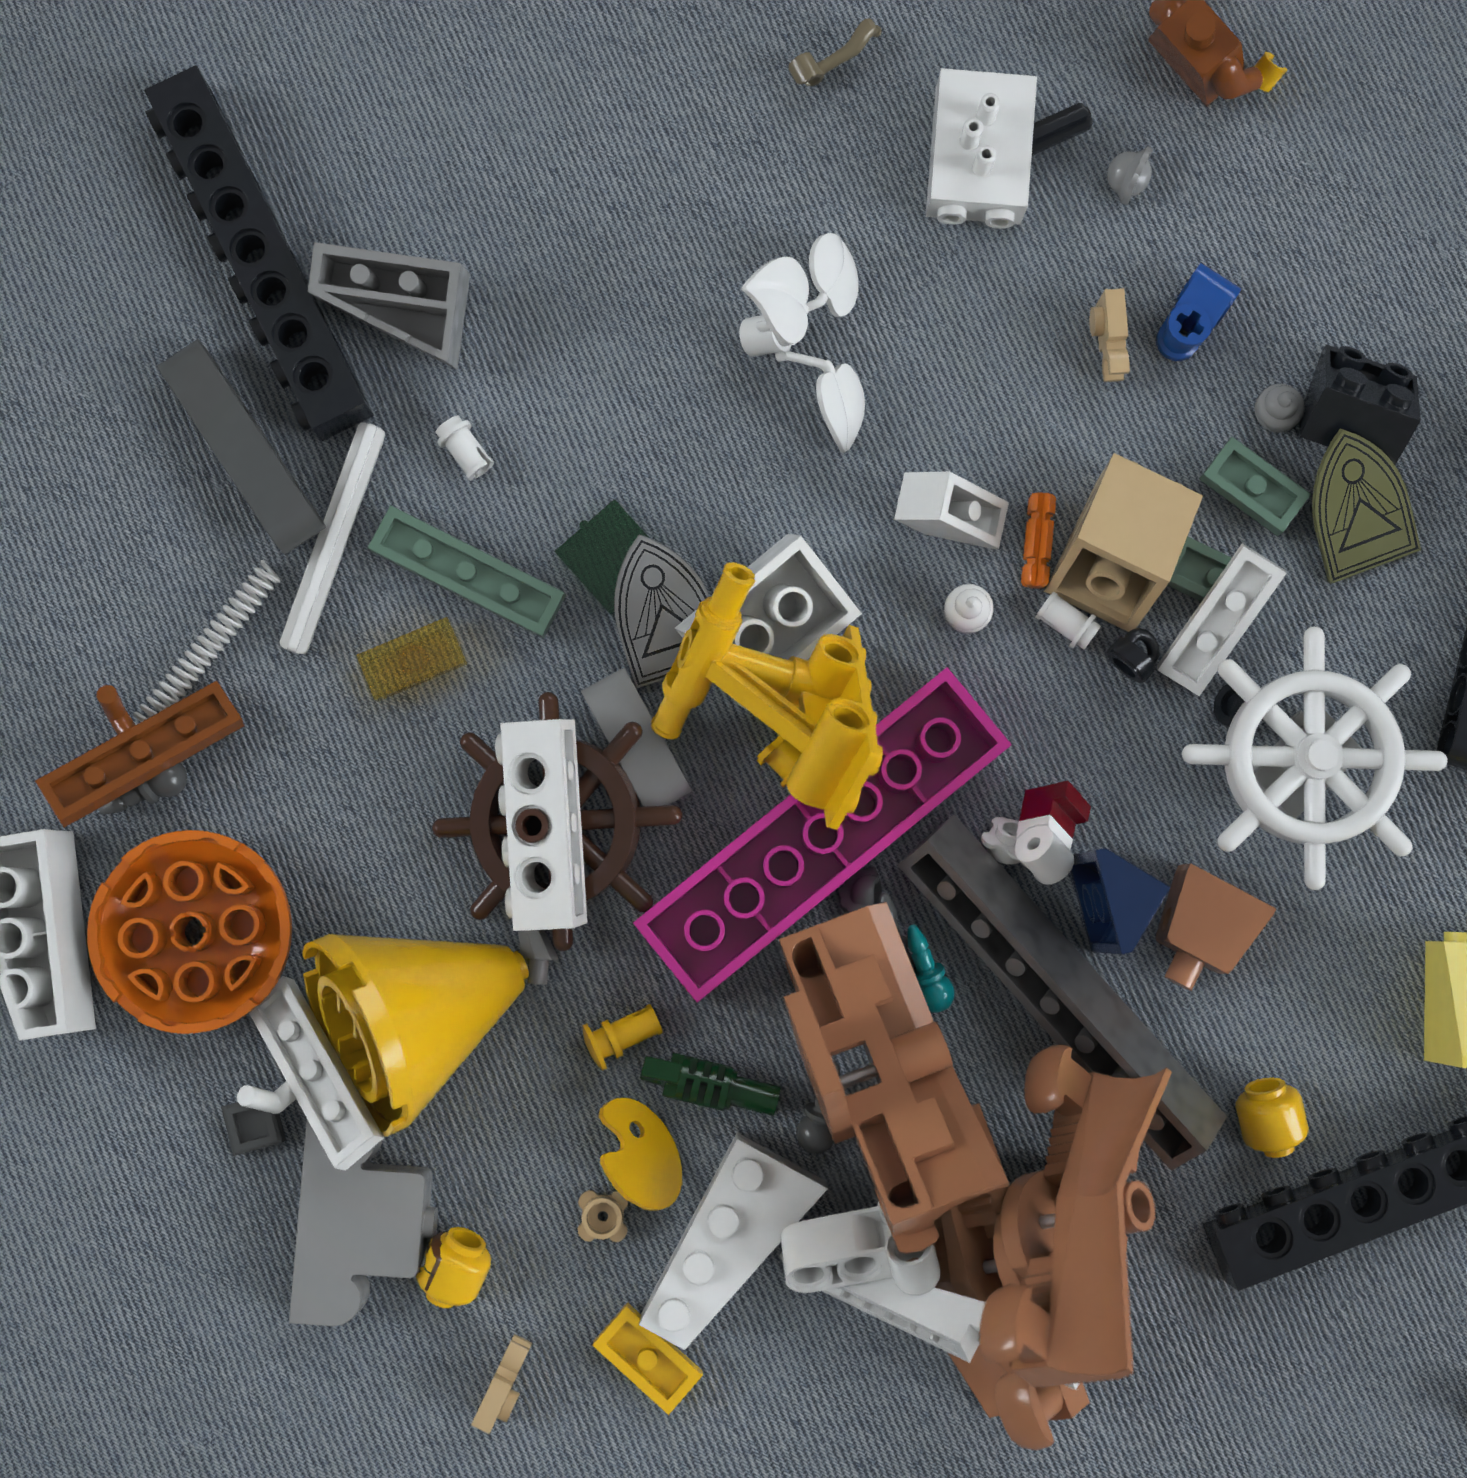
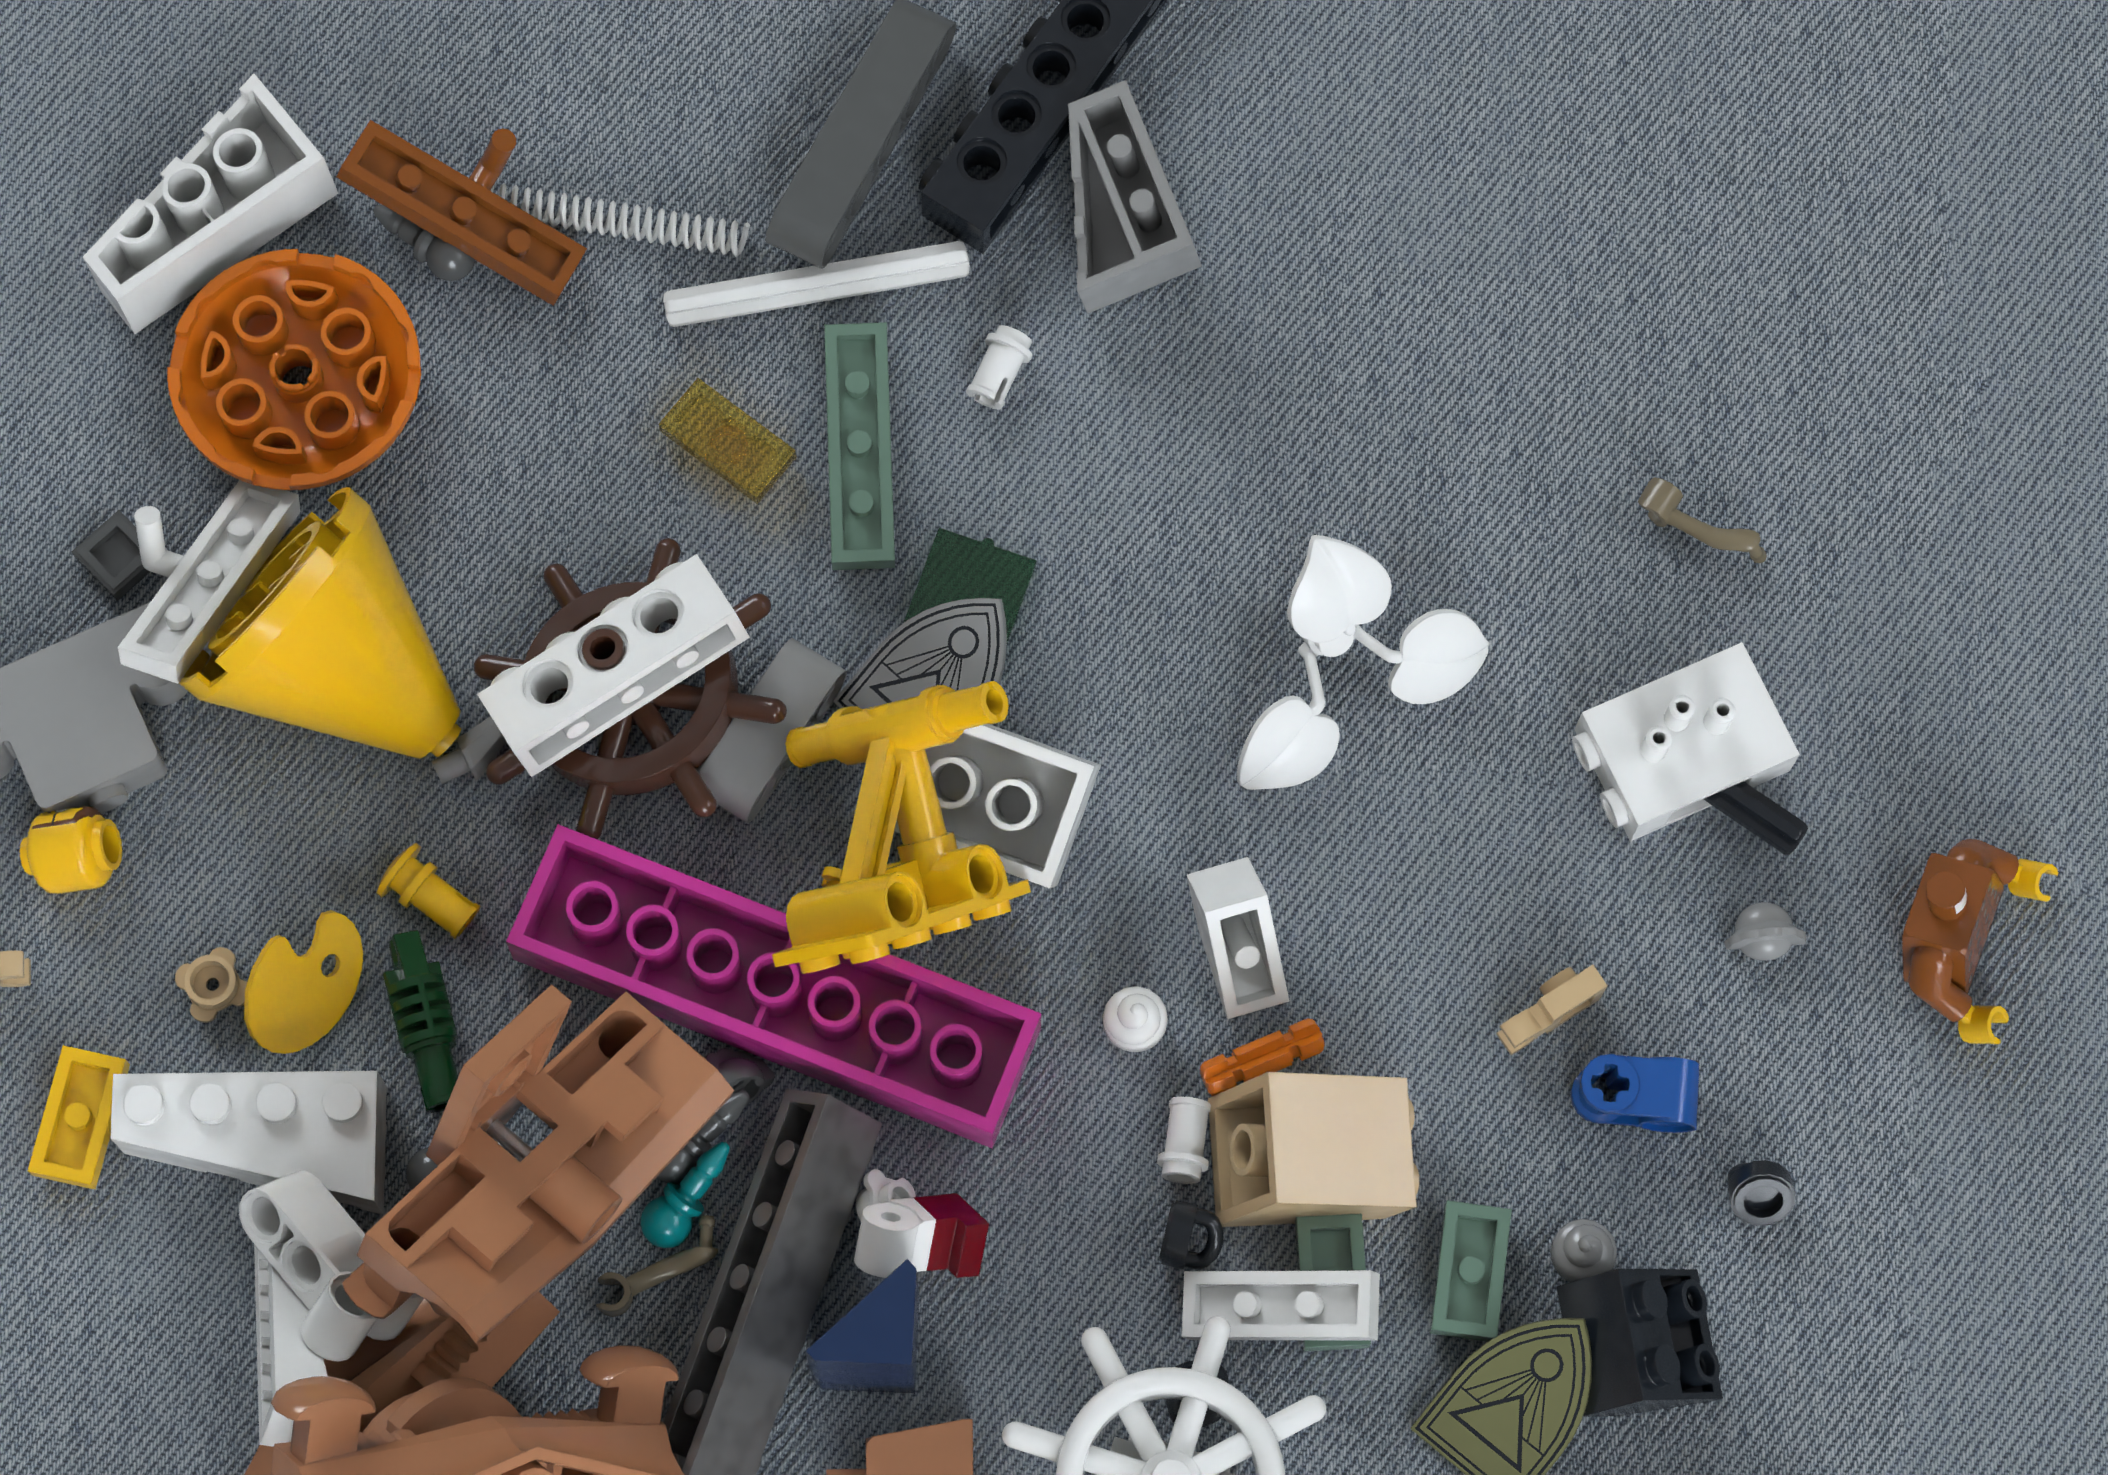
camera: 60 degrees right, 10 degrees down
(967, 1013) = (661, 1270): none -> dark tan piece
(1301, 273) = (1760, 1192): none -> black tile

